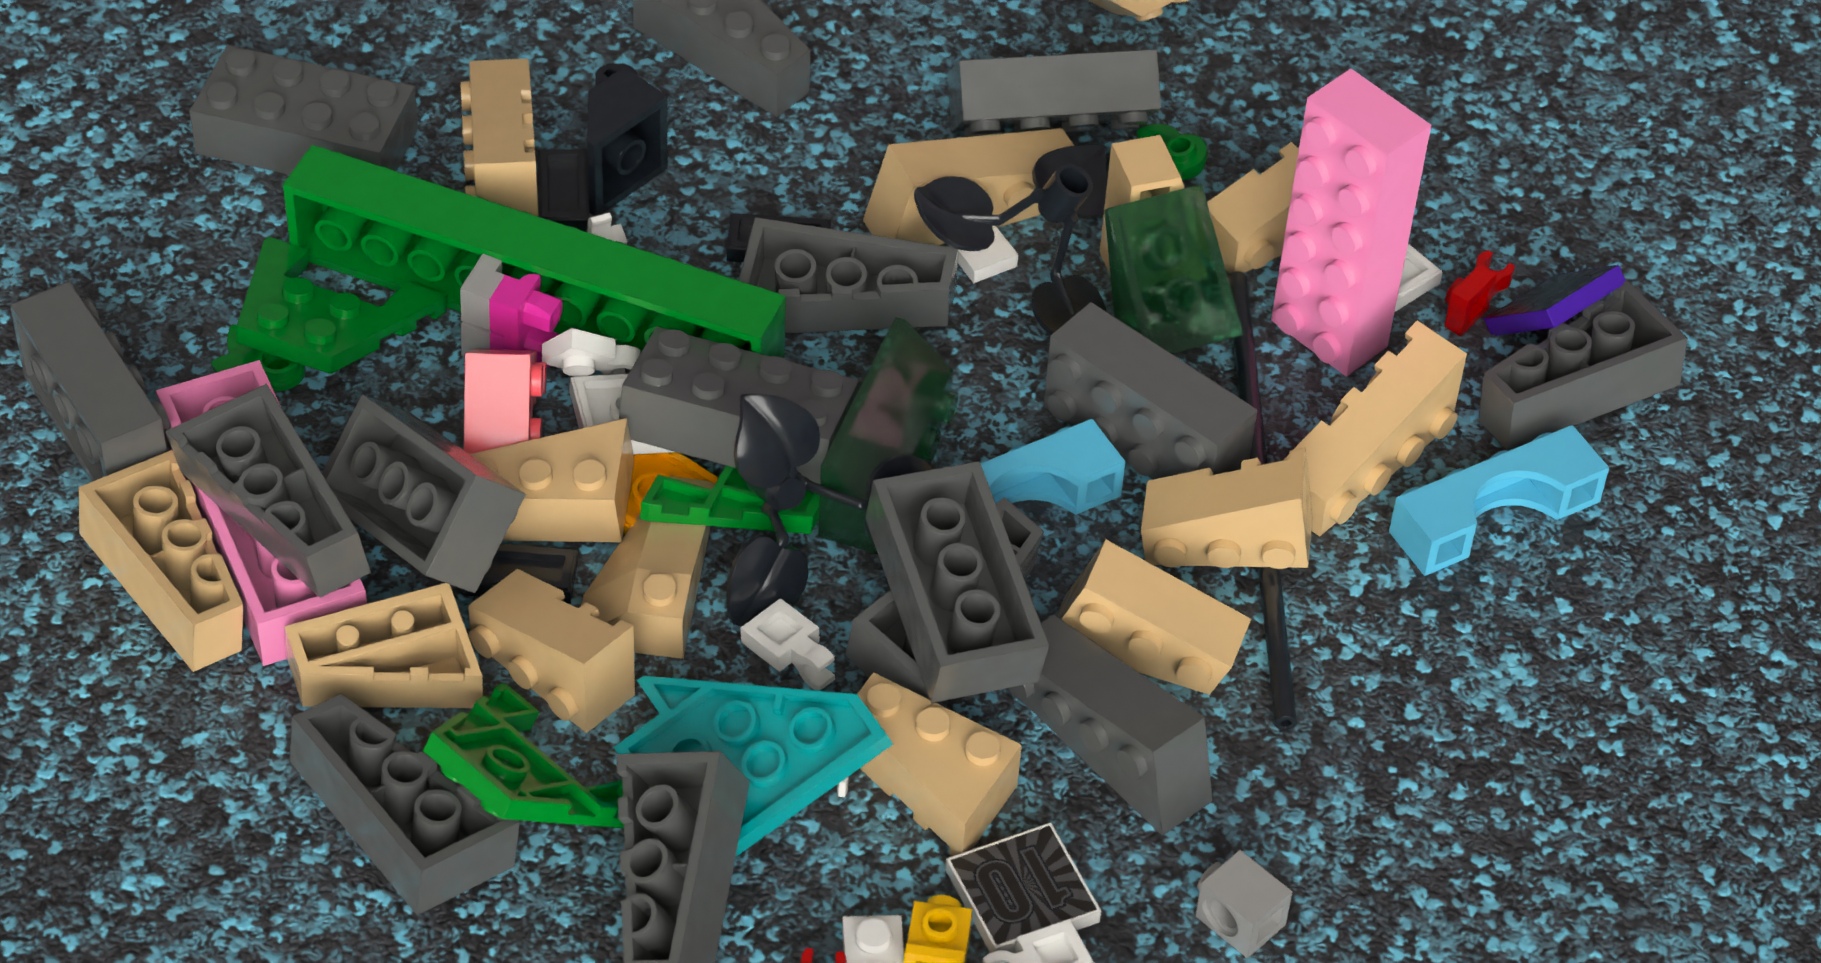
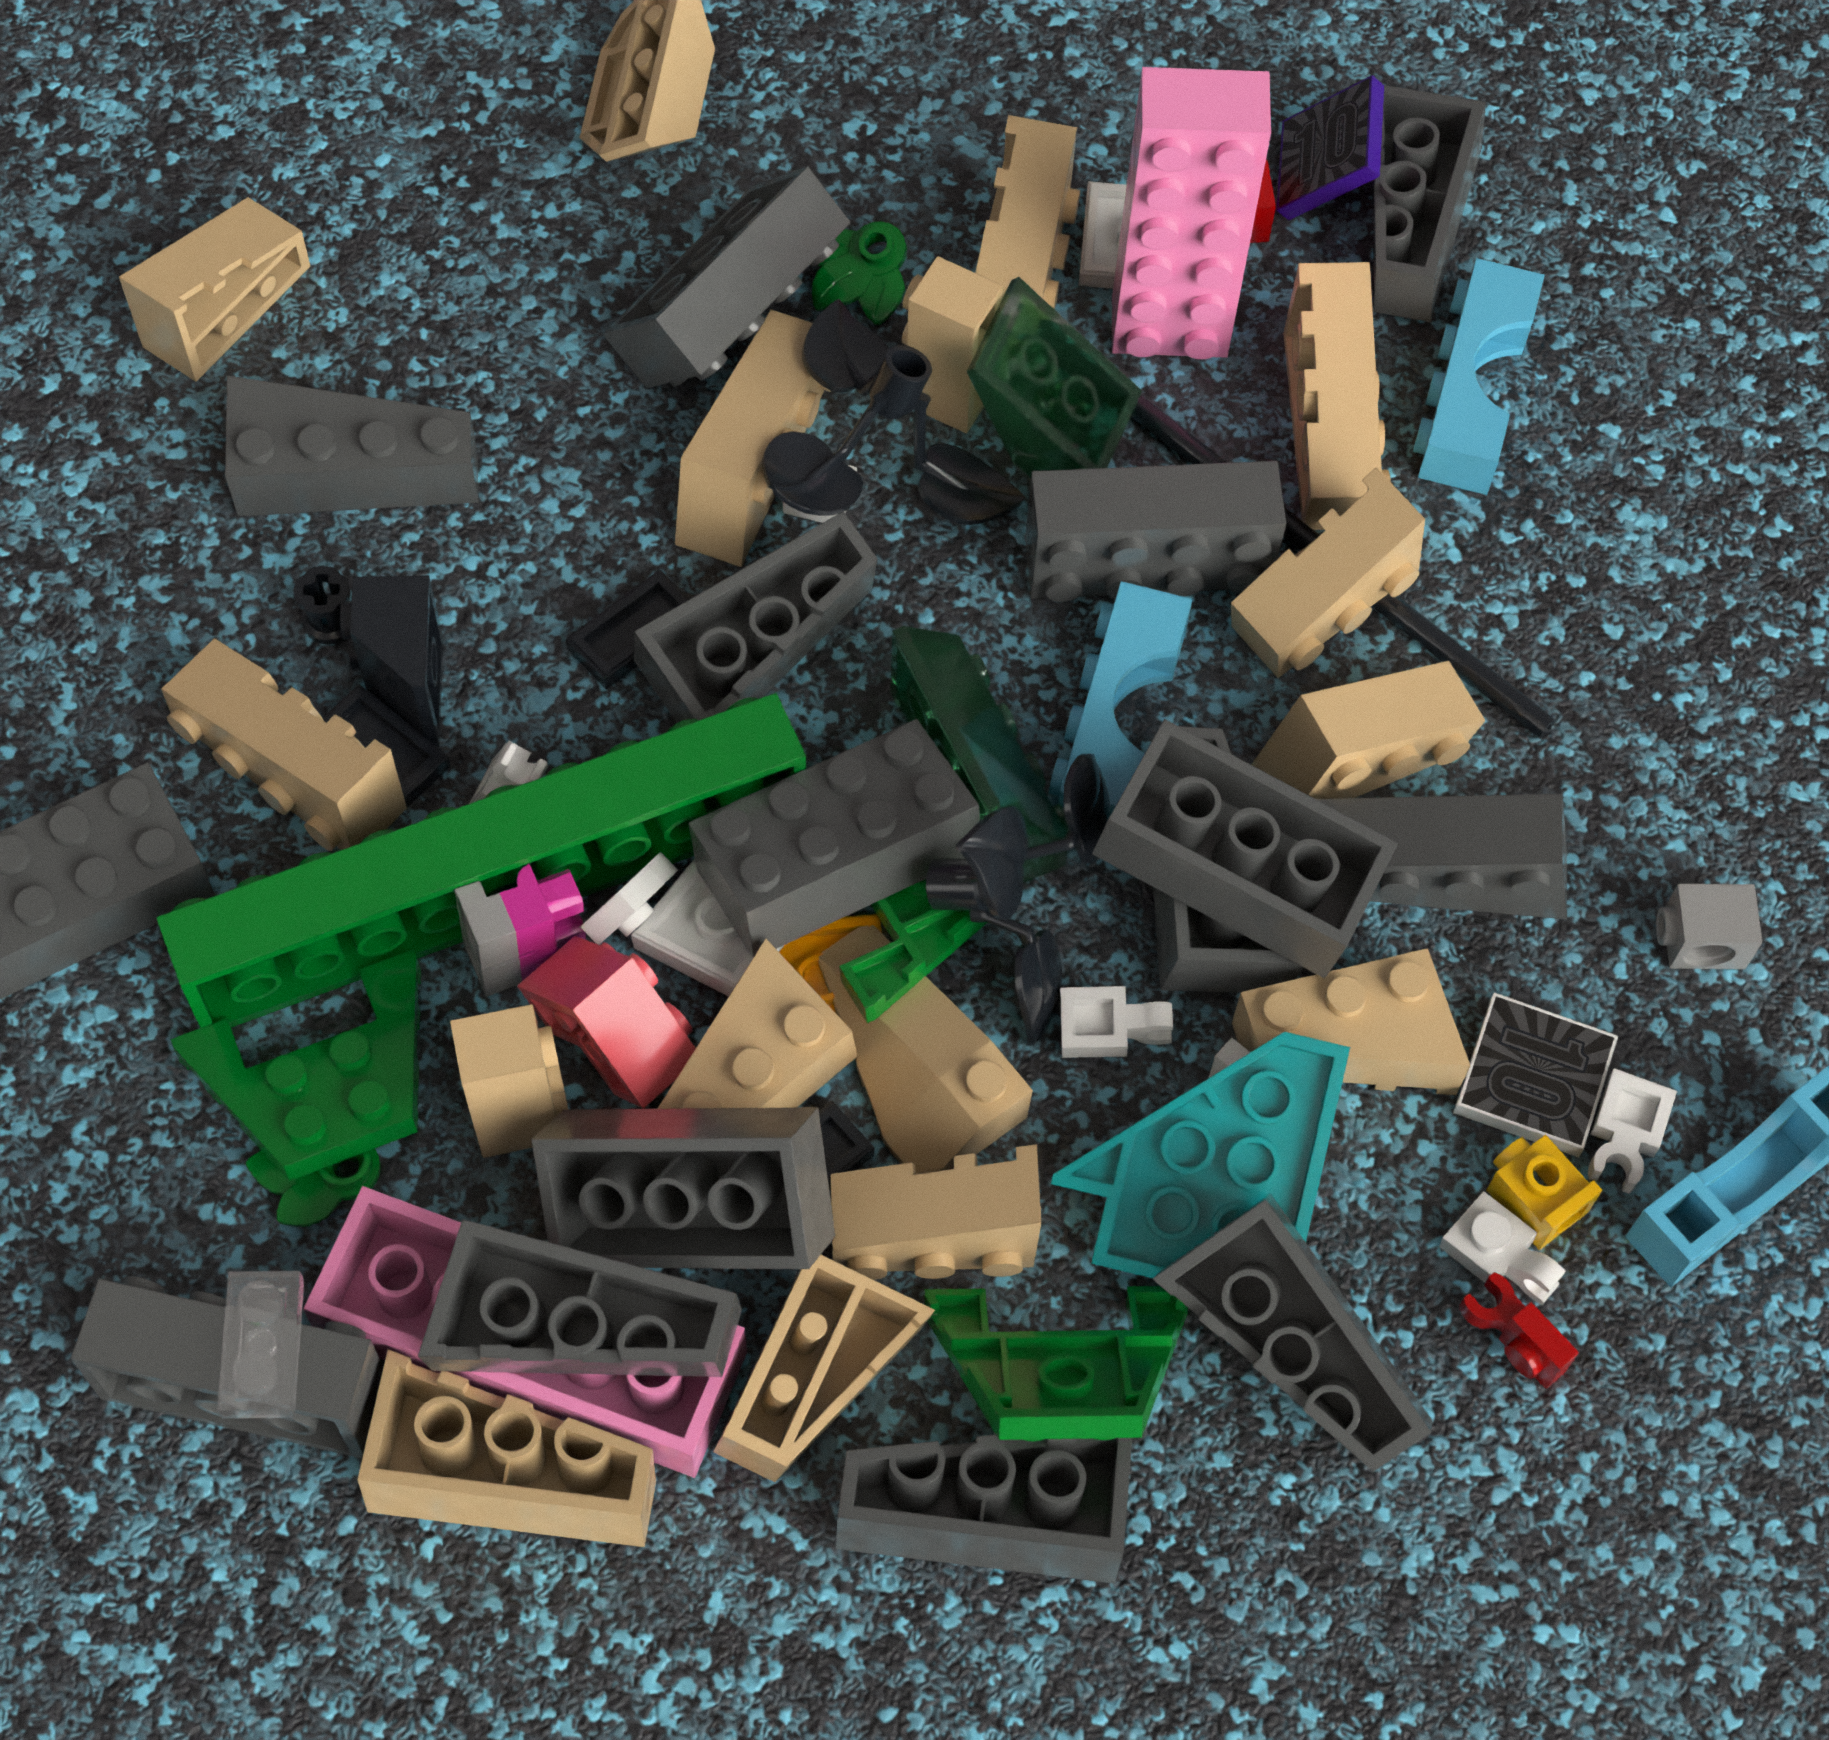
camera: 45 degrees left, 15 degrees up
(103, 370) = (261, 1344): none -> clear plate
(404, 359) = (508, 1077): none -> tan wedge

